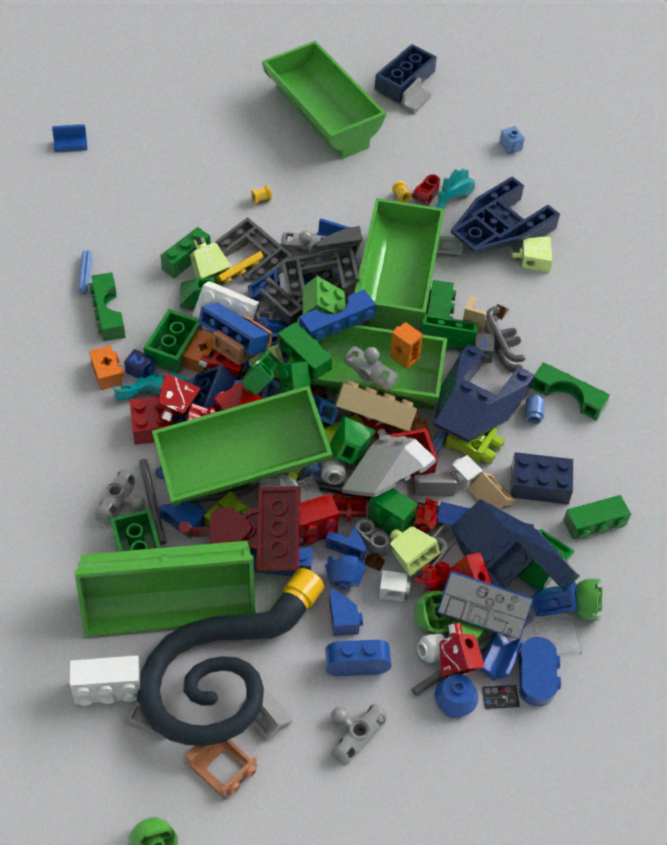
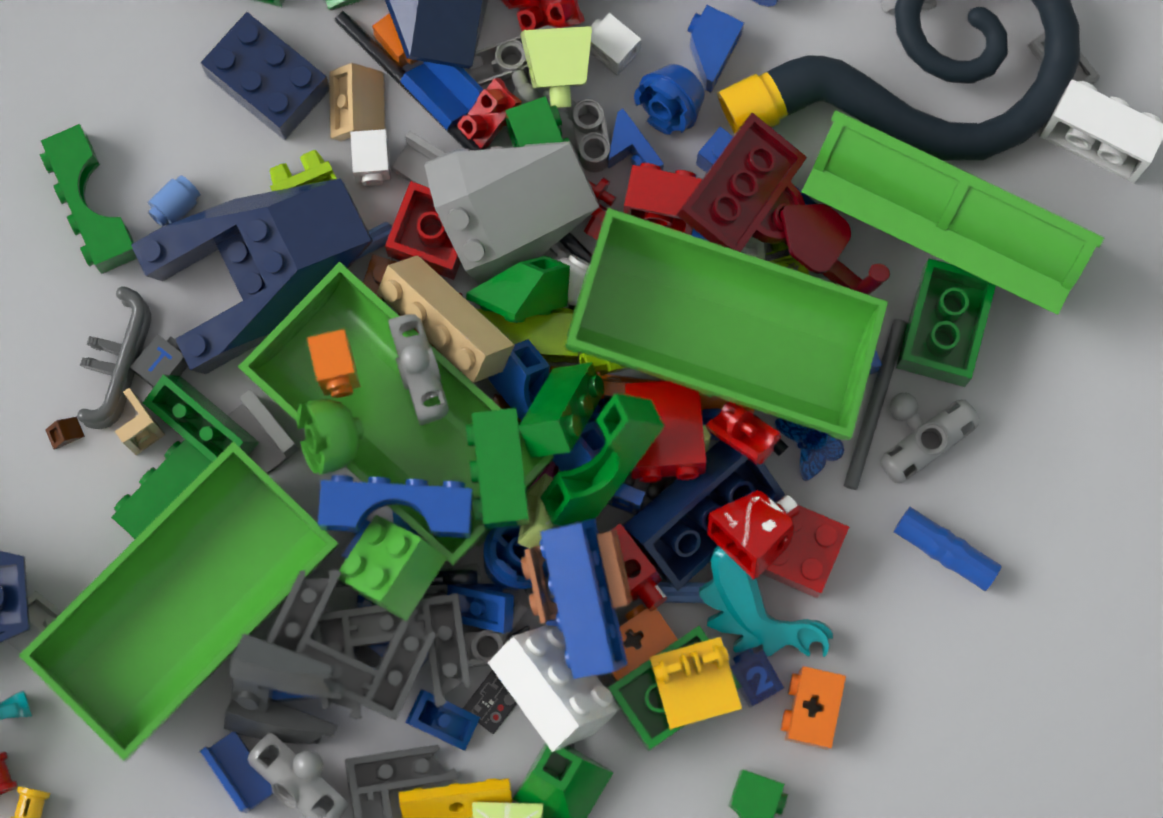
camera: 145 degrees left, 25 degrees up
(79, 456) = (947, 548): none -> blue axle
(165, 335) = (695, 682): none -> yellow hinge
(374, 561) = (610, 105): reddish brown piece -> none
(384, 322) = (329, 433): none -> bright green cylinder

